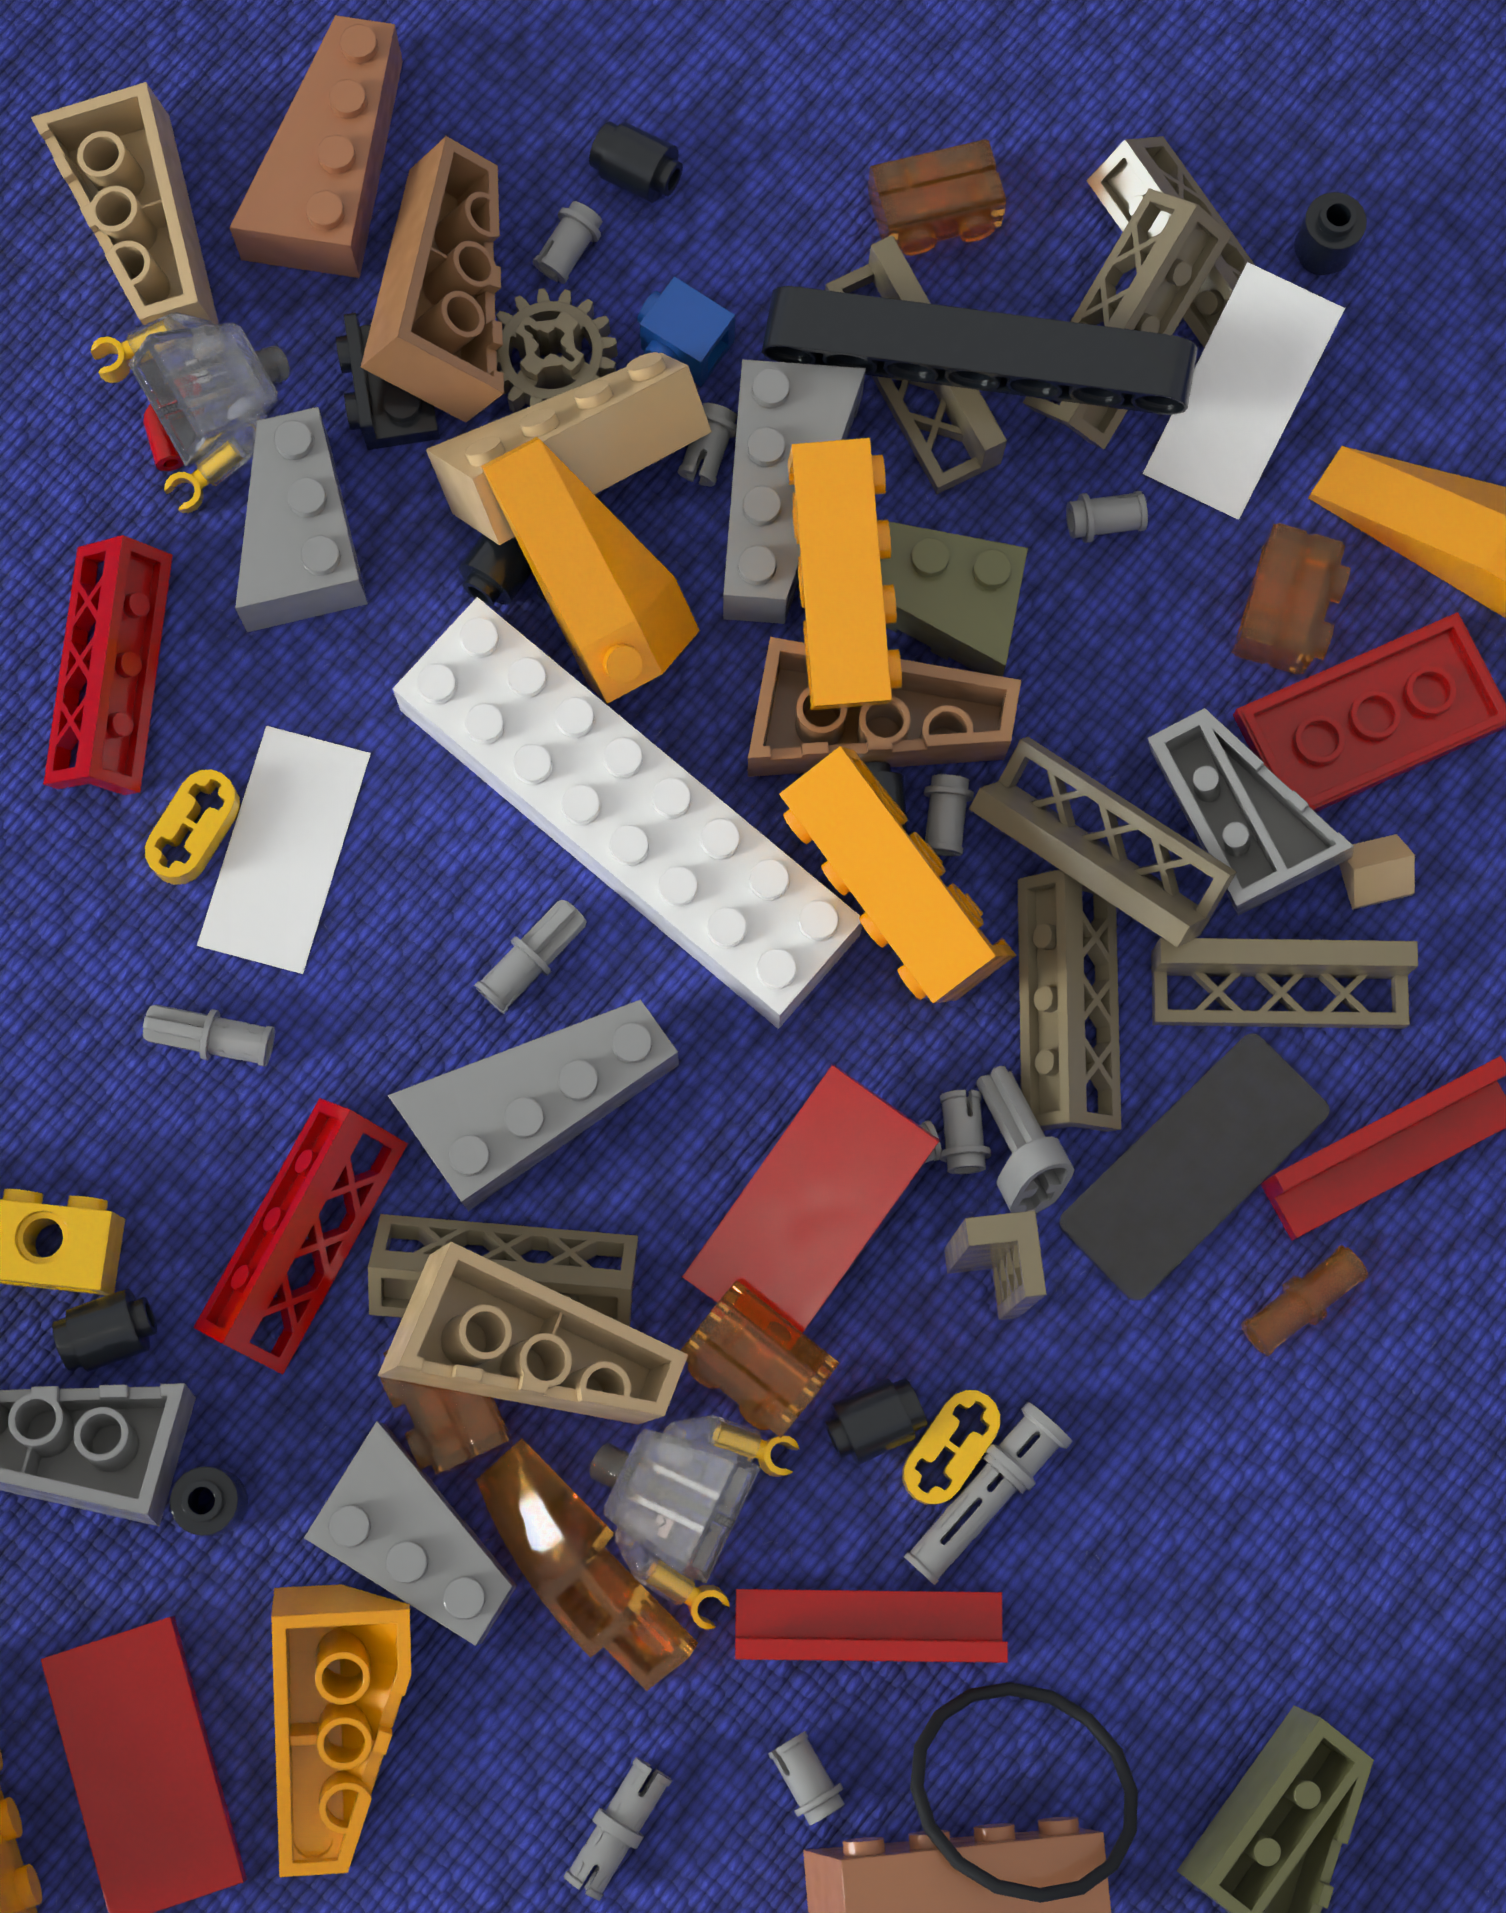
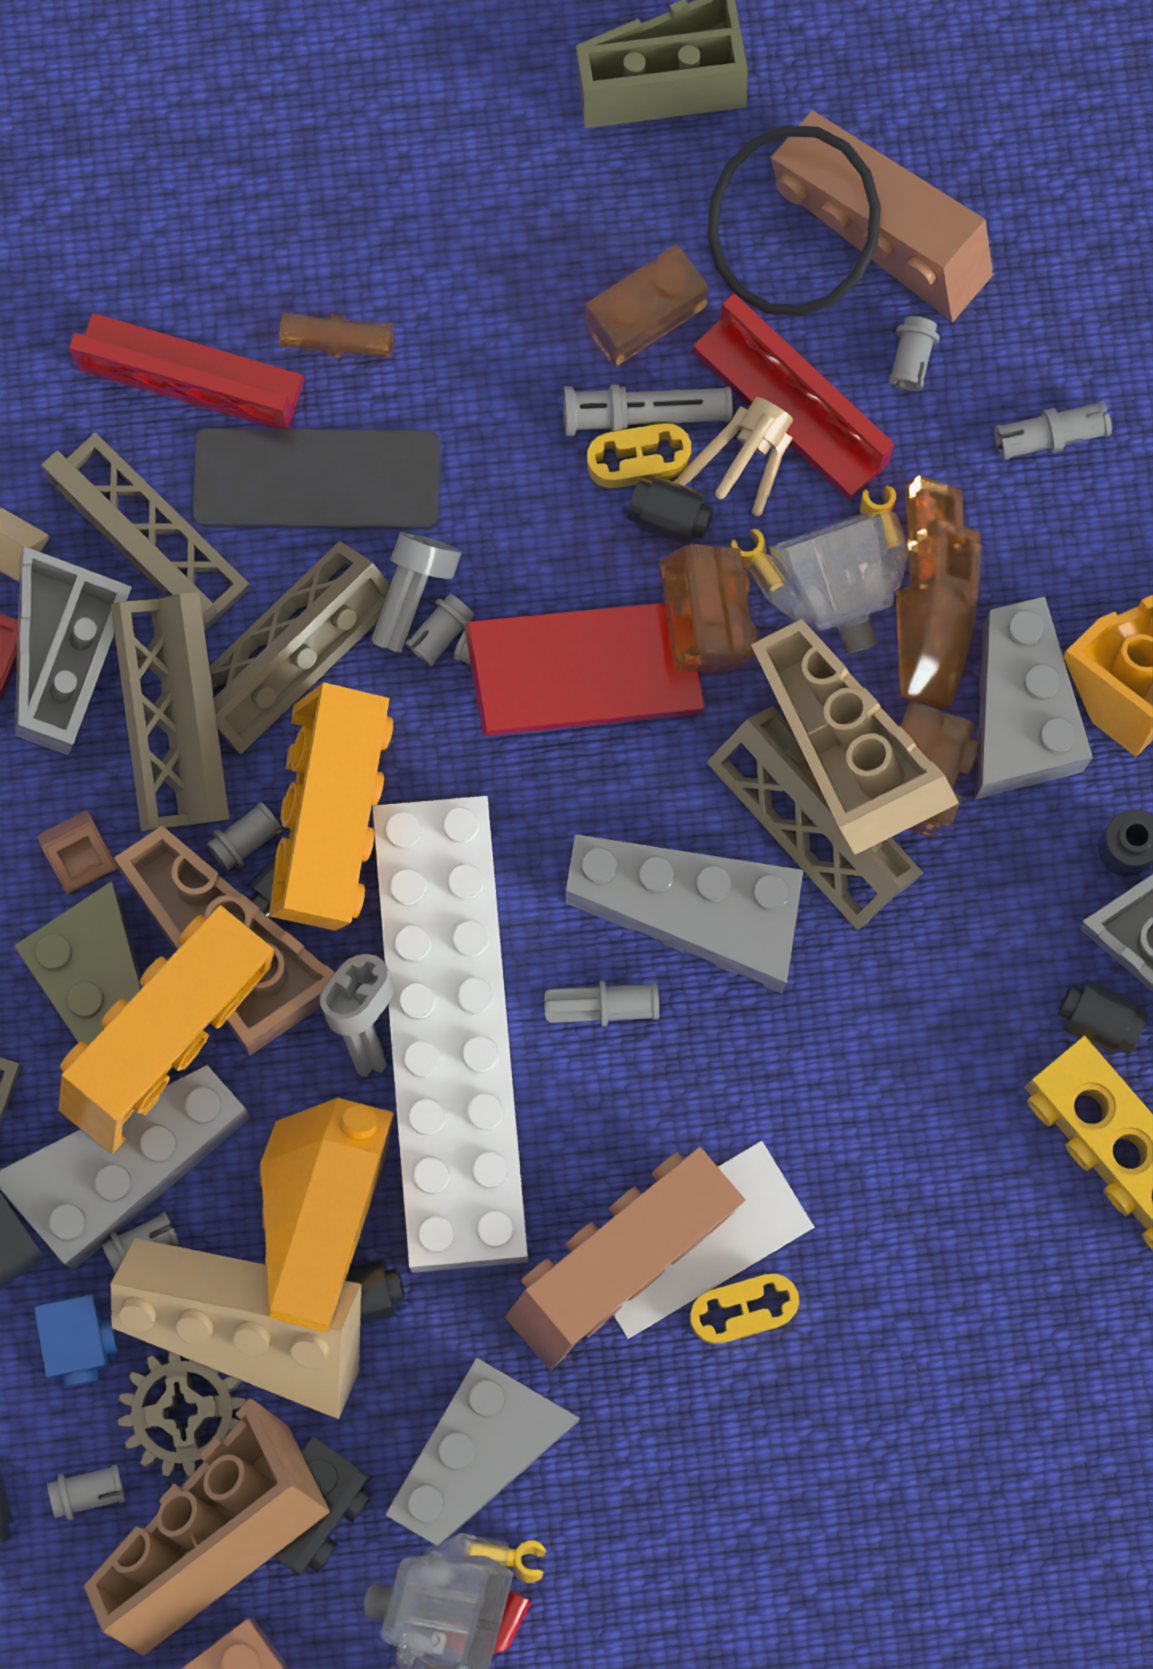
camera: 135 degrees left, 0 degrees up
(116, 664) = (693, 1473): red fence -> none
(209, 1034) = (862, 1152): light grey axle -> none
(280, 1231) = (926, 970): red fence -> none
(318, 769) = (623, 1255): none -> nougat wedge
(711, 737) = (354, 1012): none -> light grey piece
(867, 1568) = (761, 428): none -> tan plant
(1009, 1248) = (507, 503): dark tan fence -> none
(1065, 685) = (76, 852): none -> nougat slope
(1076, 1584) = (645, 305): none -> clear orange brick

